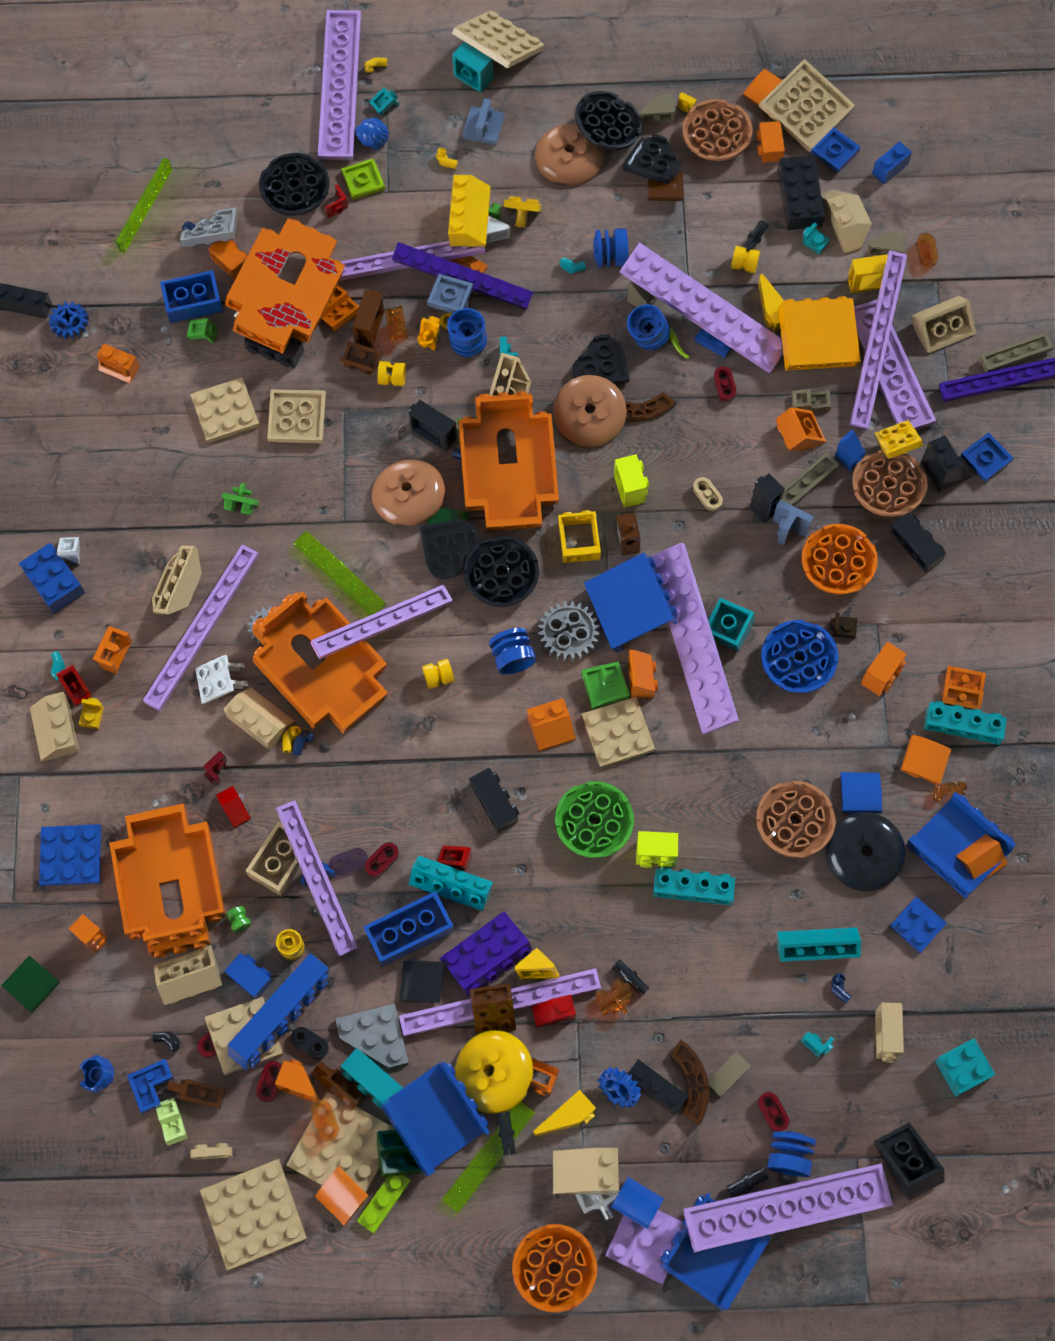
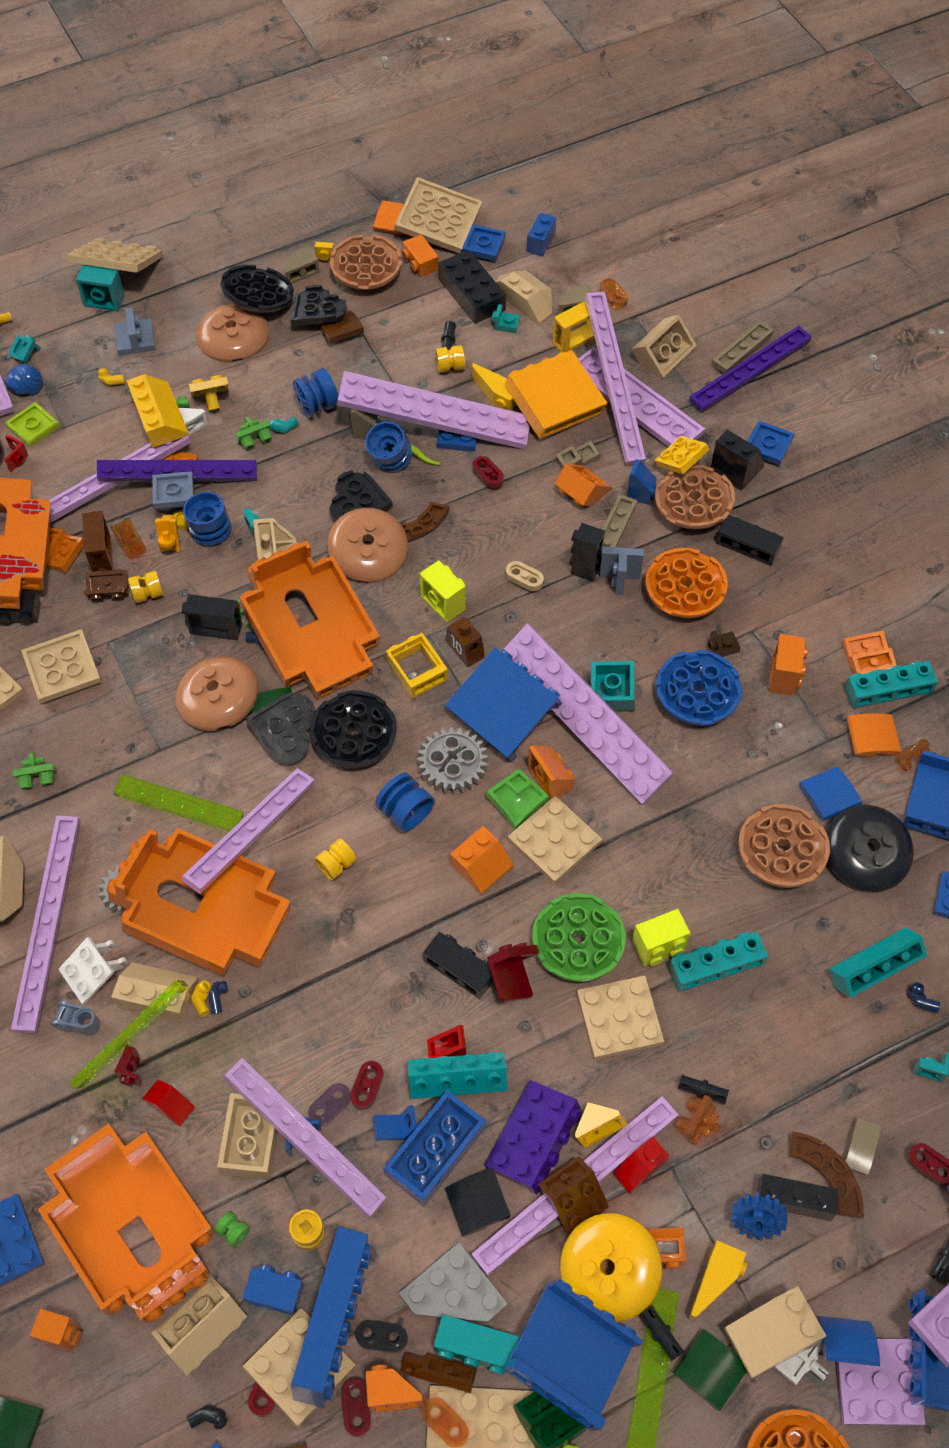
camera: 25 degrees left, 10 degrees down
(190, 711) = (71, 1019): none -> sand blue piece
(224, 743) = (128, 1034): none -> clear neon green tile
(387, 899) = (395, 1126): none -> blue bracket
(528, 824) = (510, 972): none -> dark red bracket
(529, 1174) = (711, 1369): none -> dark green slope
(550, 264) = (252, 430): none -> bright green hips
(596, 895) = (620, 1017): none -> tan plate

